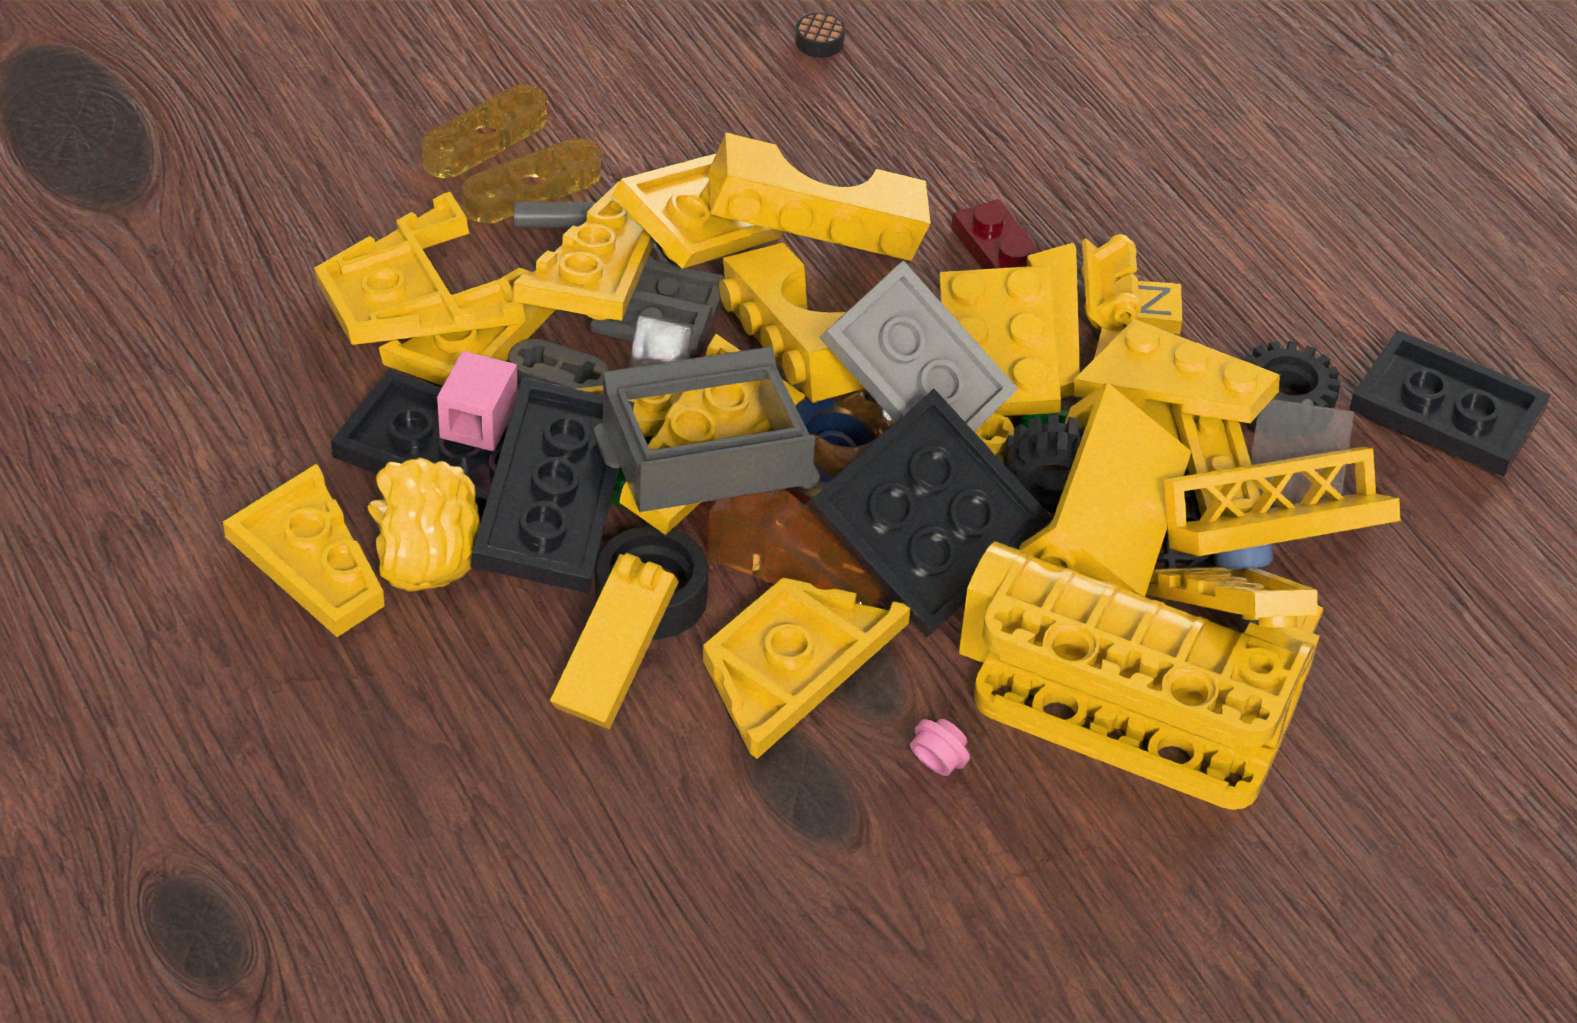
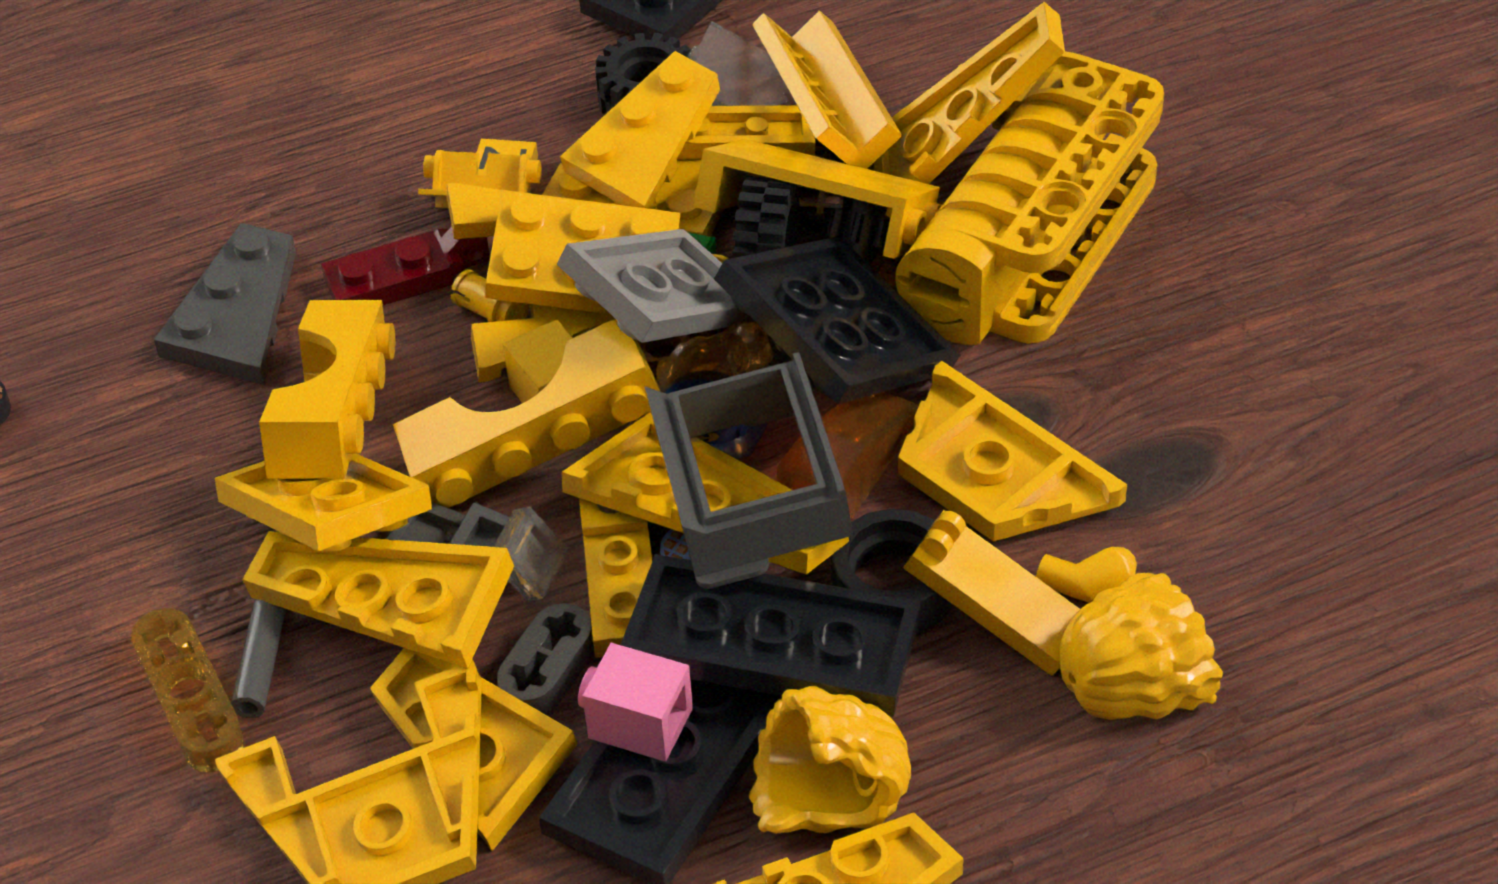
camera: 80 degrees left, 0 degrees up
(456, 148) = (77, 765): clear yellow beam -> none
(535, 719) = (1139, 652): none -> yellow hair
(657, 729) = (1089, 577): none -> yellow arm
(940, 746) = (1114, 354): bright pink plate -> none
(957, 157) = (233, 307): none -> dark grey wing

